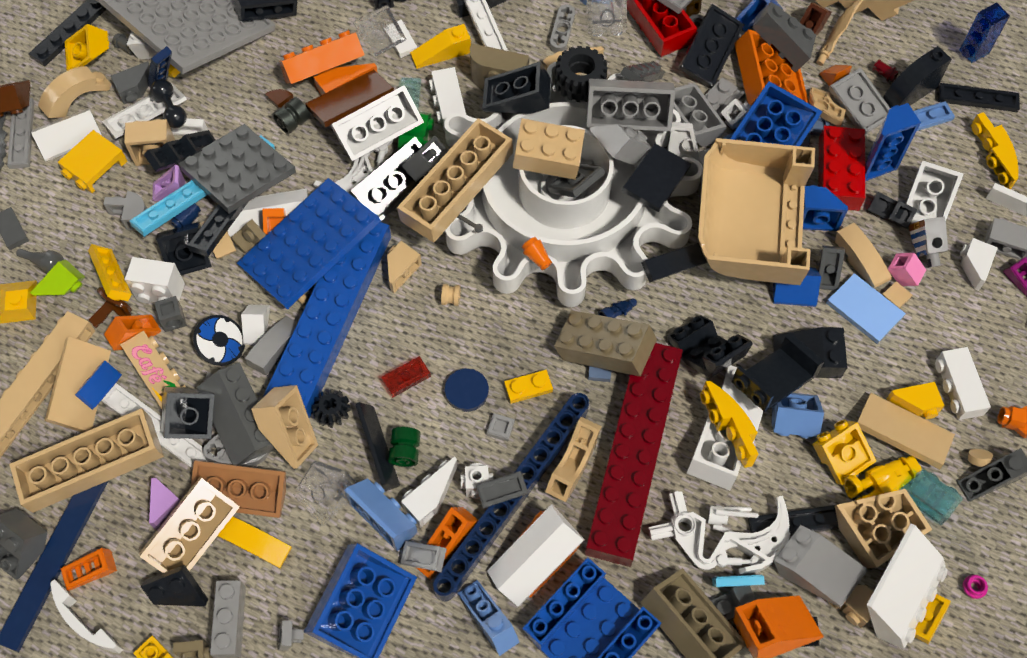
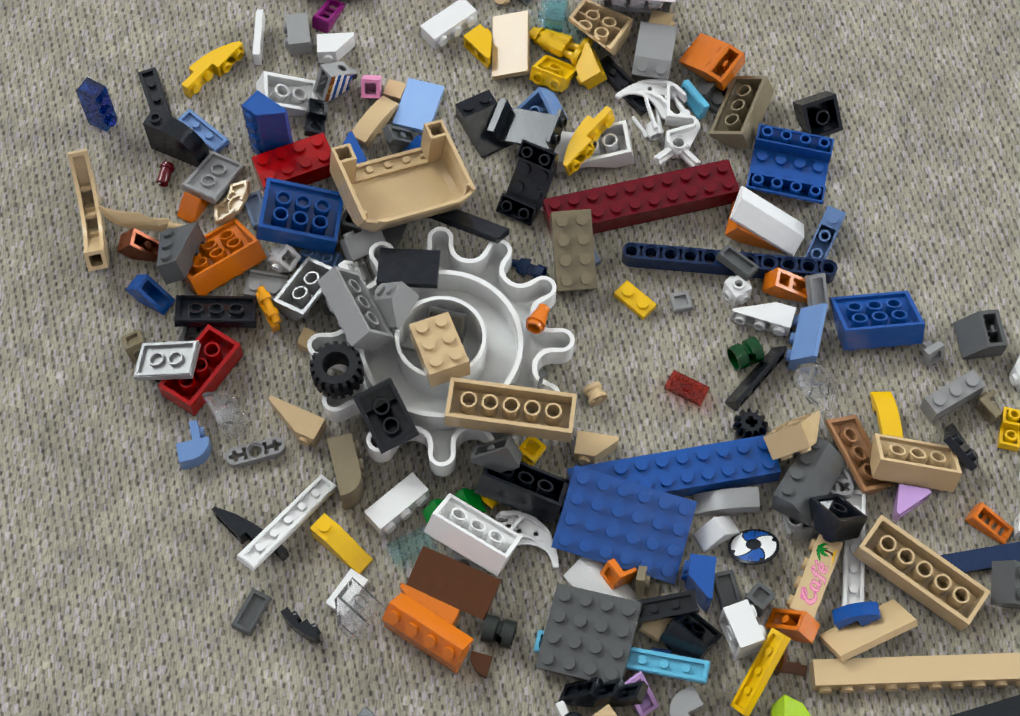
camera: 120 degrees left, 0 degrees up
(200, 302) = (726, 588): none -> dark grey tile
(219, 274) = (700, 575): none -> blue slope
(466, 390) = (667, 341): dark blue tile -> none
(574, 460) = (687, 235): tan arch -> none
(643, 72) = (287, 342): dark grey plate -> none
(697, 75) = (270, 312): none -> light orange plate
(832, 489) = (589, 68): none -> yellow slope

